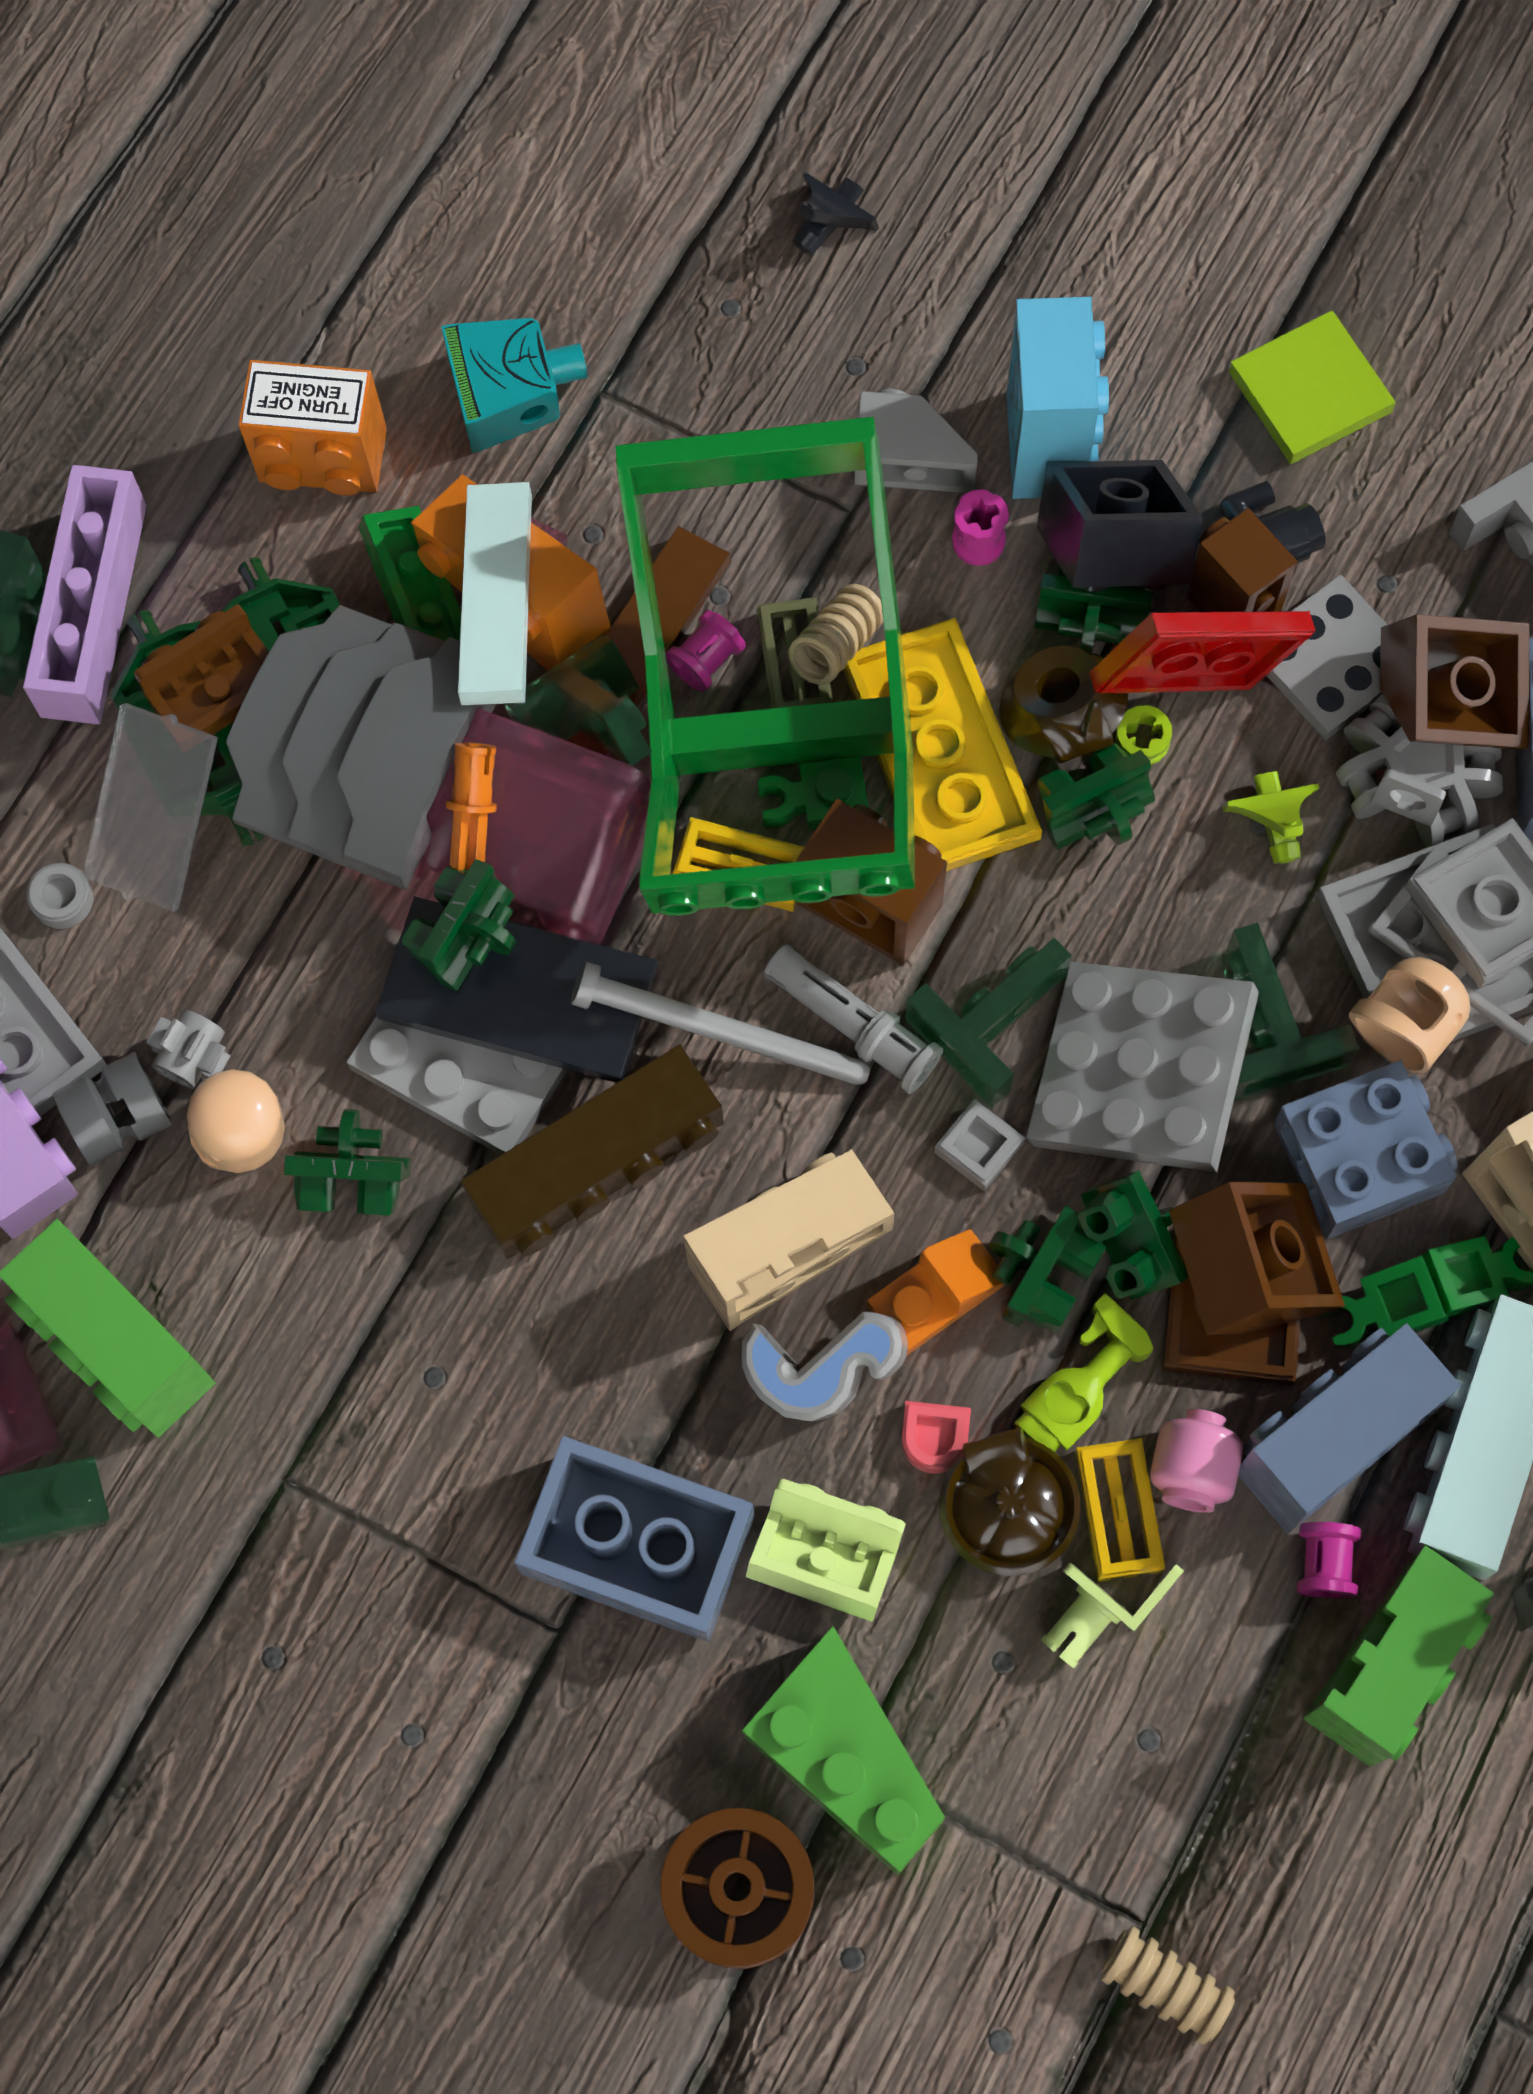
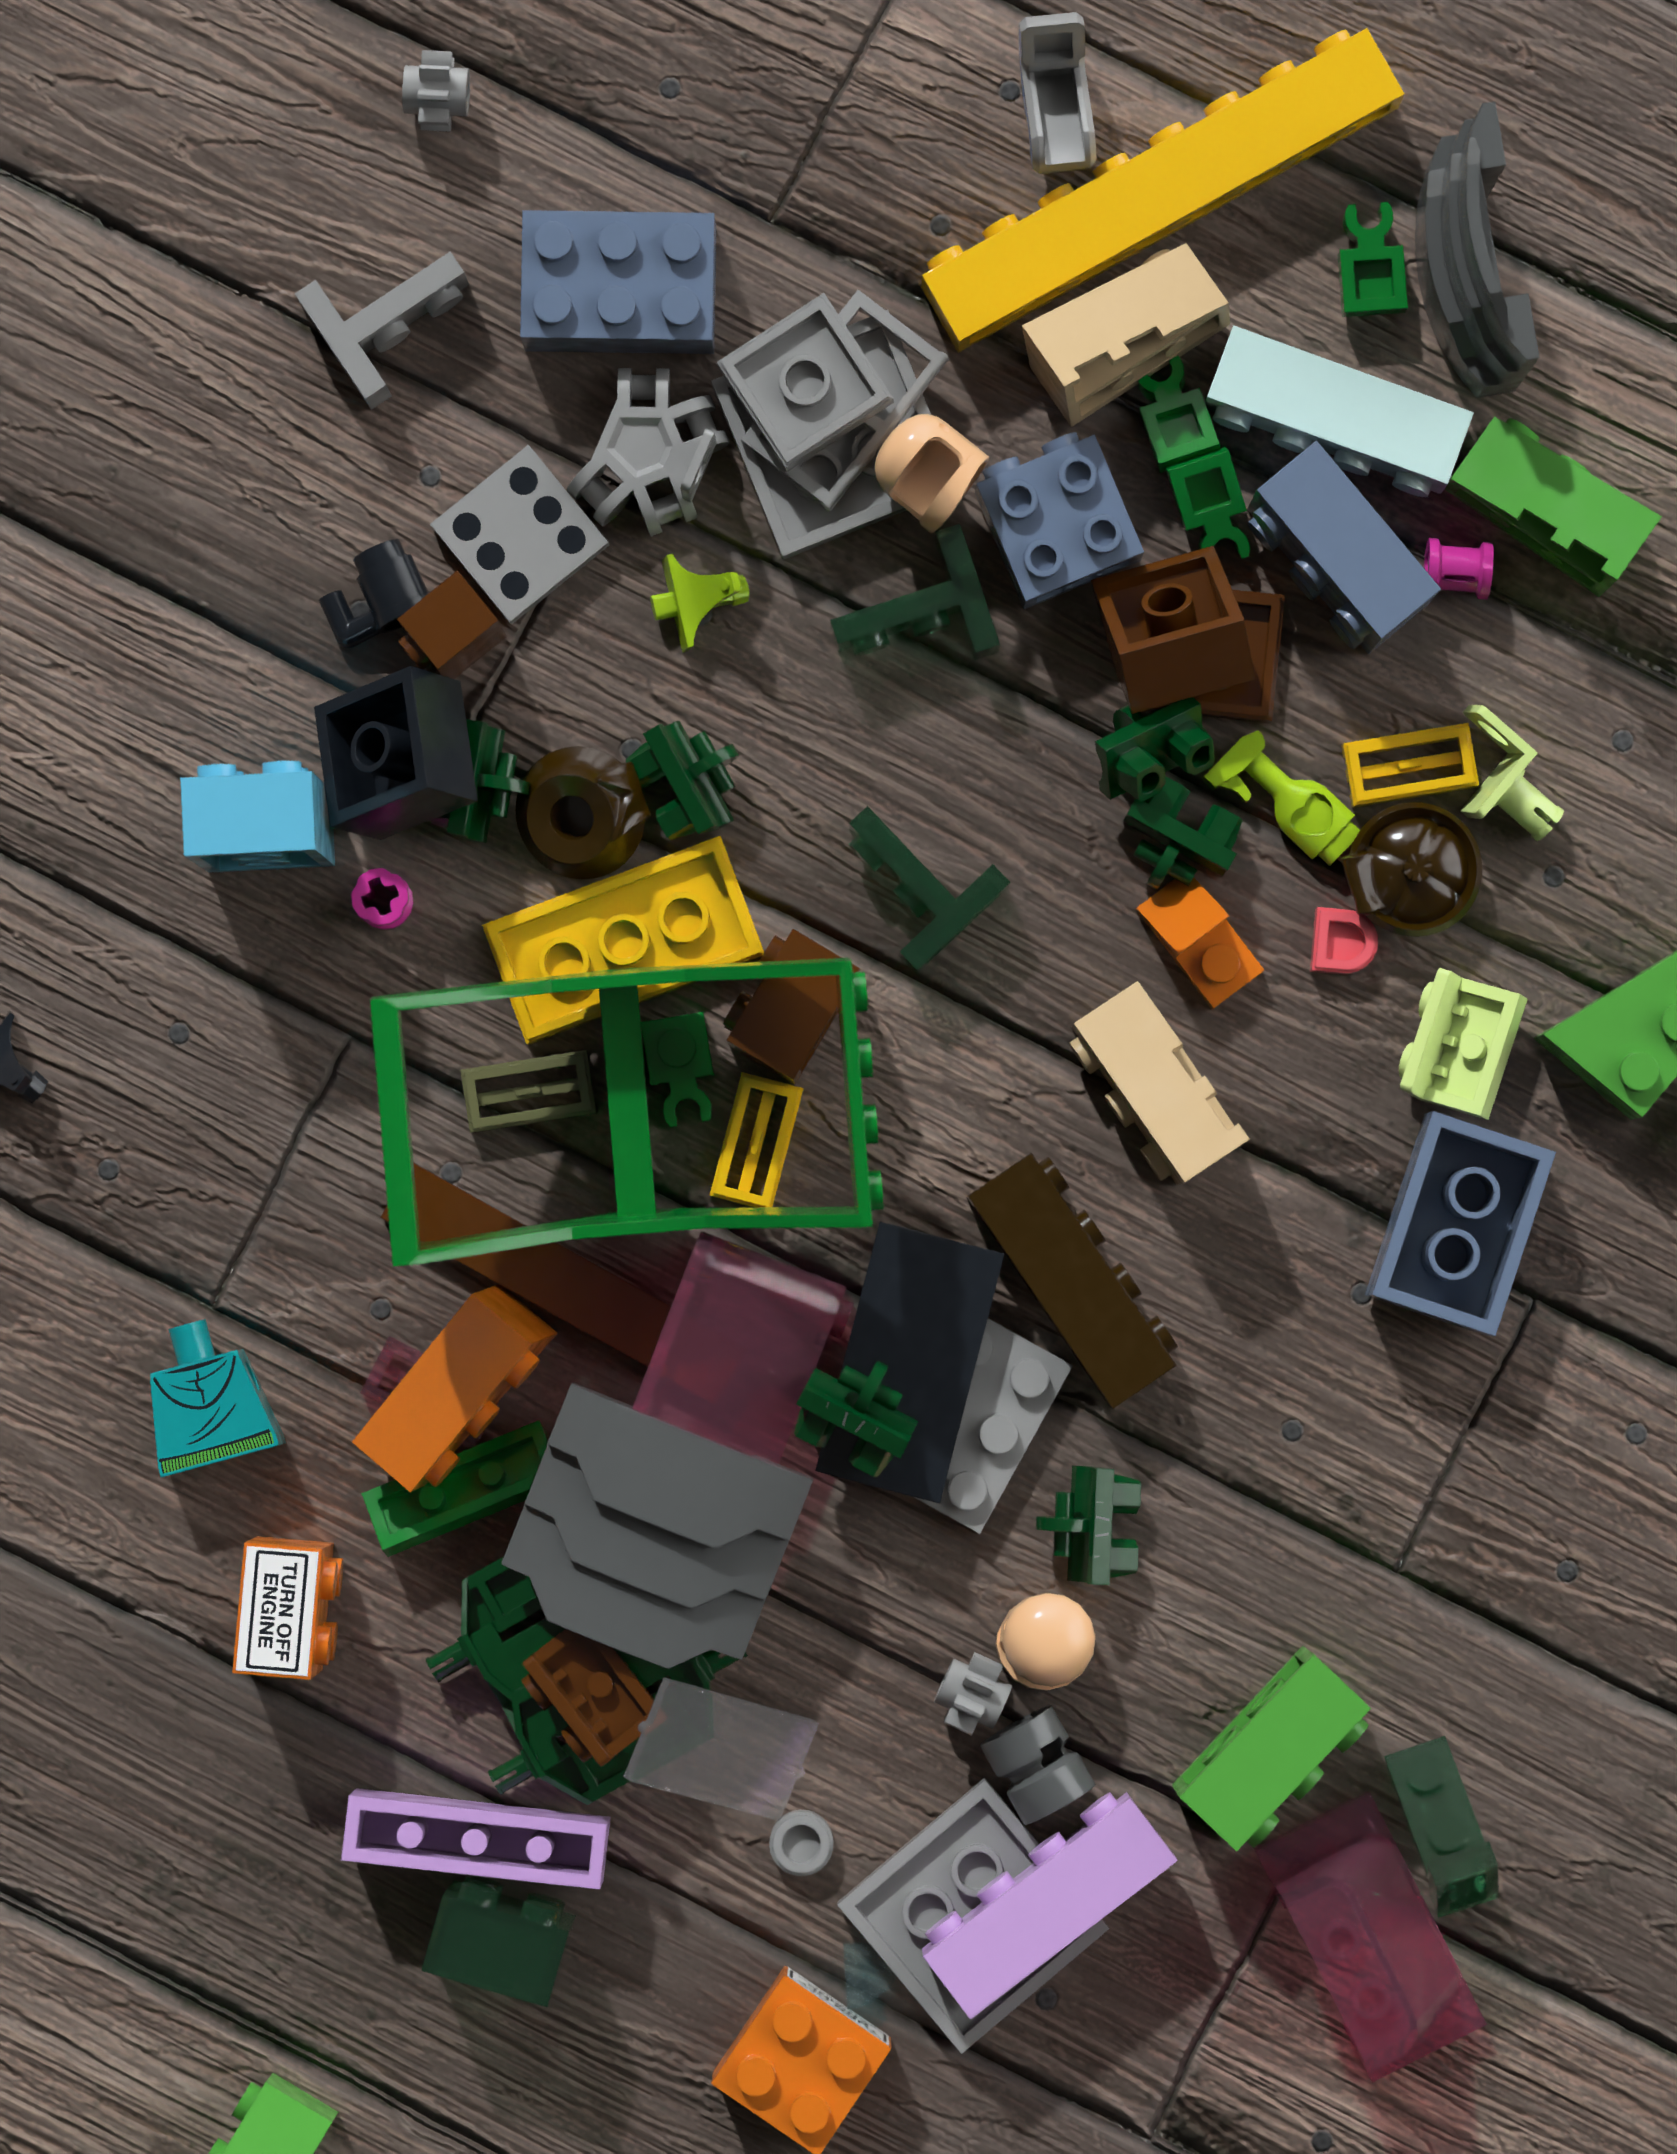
camera: 90 degrees left, 15 degrees up
(471, 802) = (734, 1411): orange axle -> none
(495, 594) = (507, 1395): light aqua tile -> none
(587, 695) = (590, 1308): clear green bracket -> none
(592, 987) = (919, 1285): light grey bar -> none
(712, 632) = (525, 1184): dark pink bush -> none
(832, 1376) = (1300, 1044): light grey animal -> none
(836, 634) = (513, 1046): tan piece -> none
(875, 1033) = (942, 1000): light grey pin -> none
(917, 444) = (284, 975): light grey slope -> none
(979, 1145) = (1050, 899): light grey tile -> none
(1143, 1065) = (976, 736): light grey plate -> none
(1150, 716) = (626, 720): lime bush -> none
(1196, 1461) = (1369, 691): bright pink head -> none
(1201, 651) = (549, 669): red tile -> none
(1311, 387) = (206, 547): lime tile -> none
(1458, 680) = (568, 410): reddish brown slope -> none

